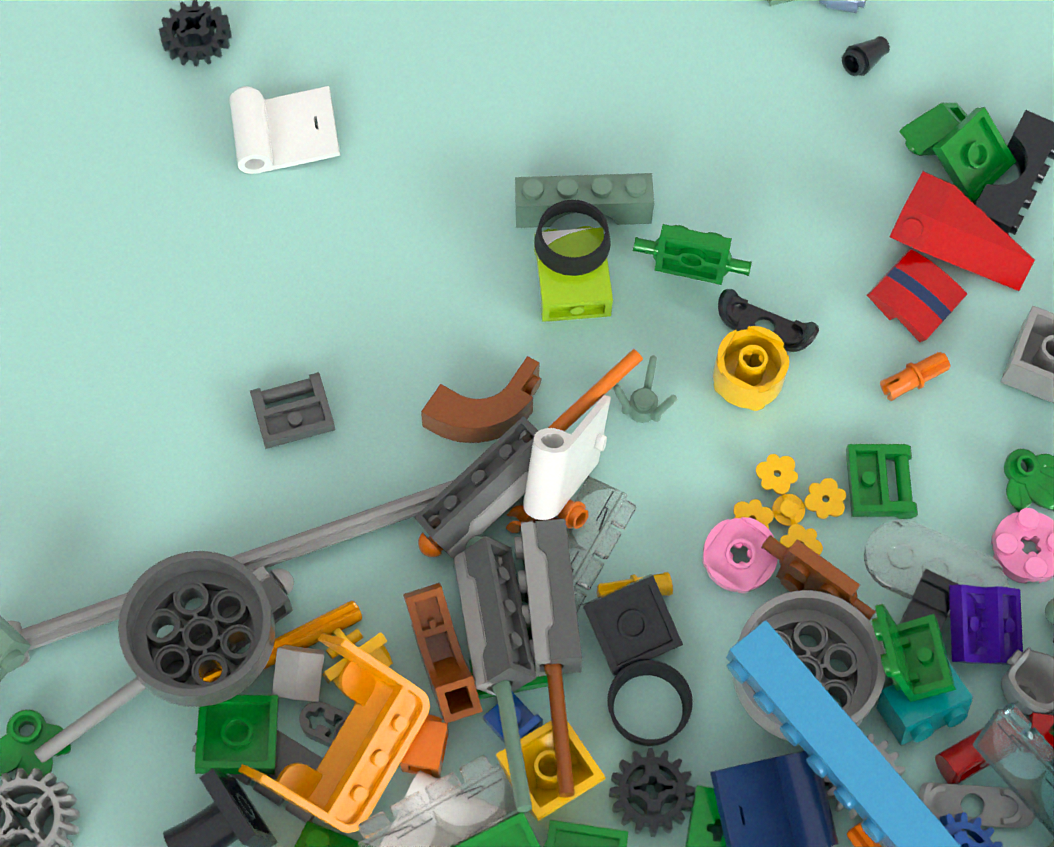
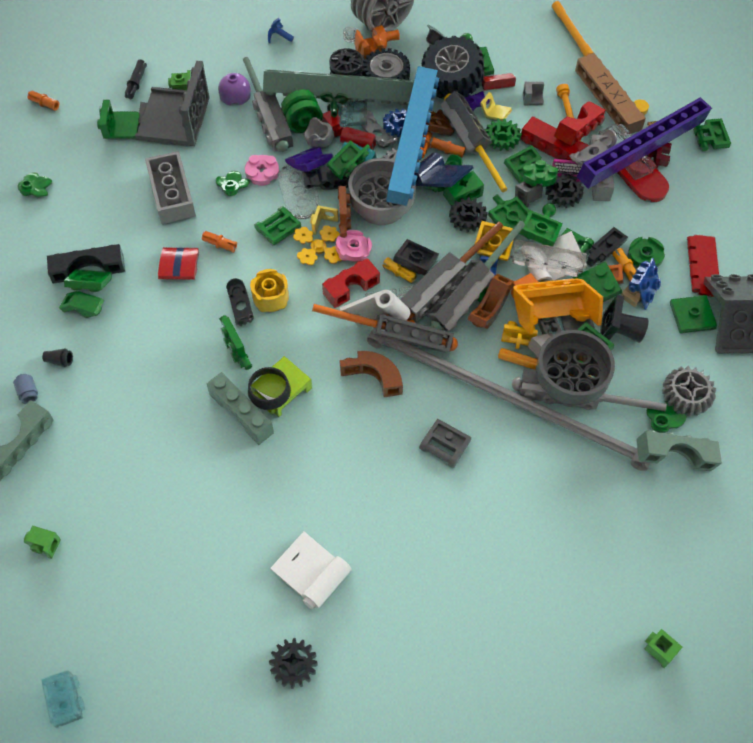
camera: 130 degrees left, 5 degrees down
(643, 401) = (318, 320): sand green plant -> none
(660, 670) = (439, 223): black tyre -> none
(670, 526) = (360, 274): none -> red arch
(844, 543) = (320, 214): none -> light yellow bracket
(953, 229) = (137, 264): wedge -> none

